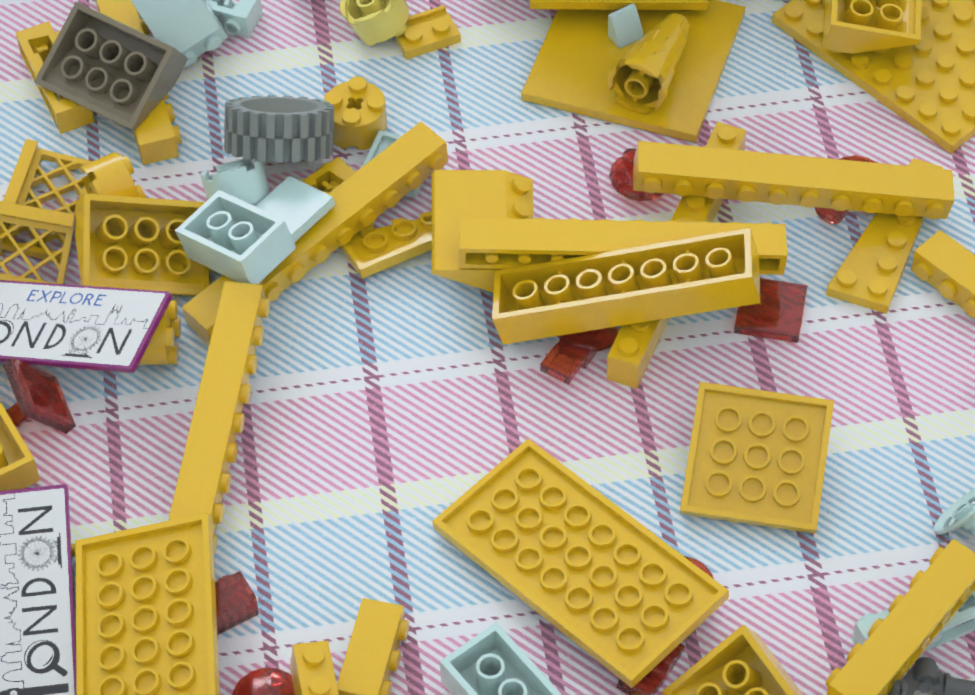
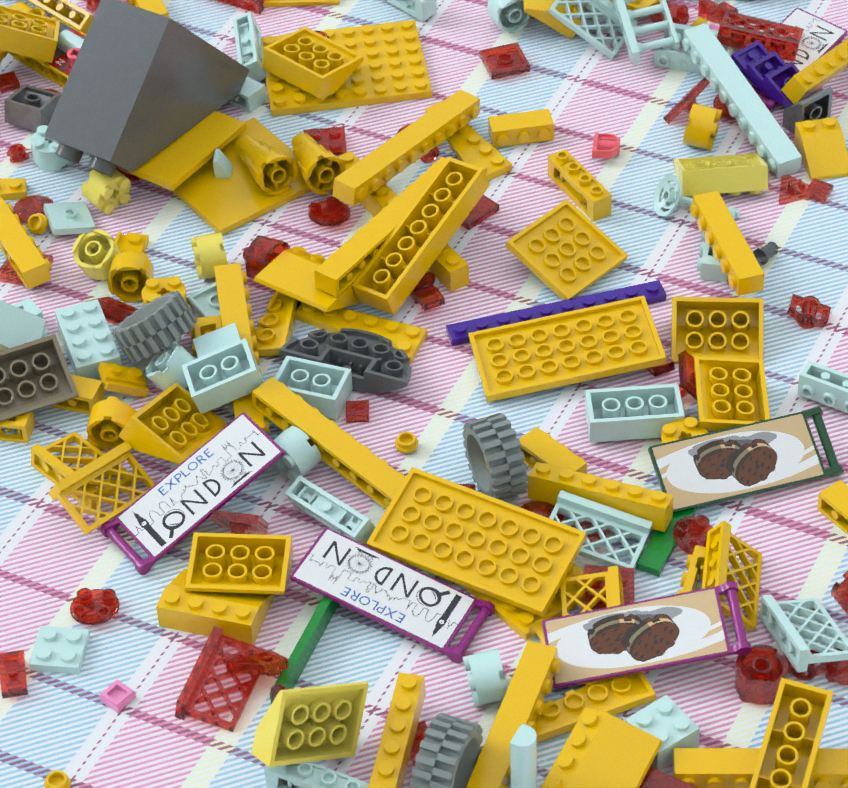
camera: 55 degrees left, 10 degrees down
(116, 473) = (329, 510): none -> light aqua brick
(178, 380) = (299, 454): none -> light aqua brick
(196, 151) = (123, 379): none -> yellow plate
(246, 69) = (86, 338): none -> light aqua brick
(292, 590) = (495, 457): none -> light grey wheel
(298, 485) = (406, 442): none -> yellow plate
(311, 335) = (317, 383): none -> light aqua brick
(317, 76) = (115, 310): none -> clear red slope
(321, 405) = (357, 411): none -> clear red tile
(366, 55) = (129, 275): none -> yellow brick
(394, 344) = (371, 357): none -> dark grey brick
(455, 109) = (208, 253): none -> light yellow brick
(470, 349) = (402, 335): none -> yellow wing
(494, 152) = (261, 253): none -> clear red brick
(661, 517) = (459, 331): none -> dark purple plate
(695, 108) = (316, 163): none -> yellow cone
(762, 100) = (331, 138): none -> clear red plate
(904, 401) = (579, 185): none -> yellow brick

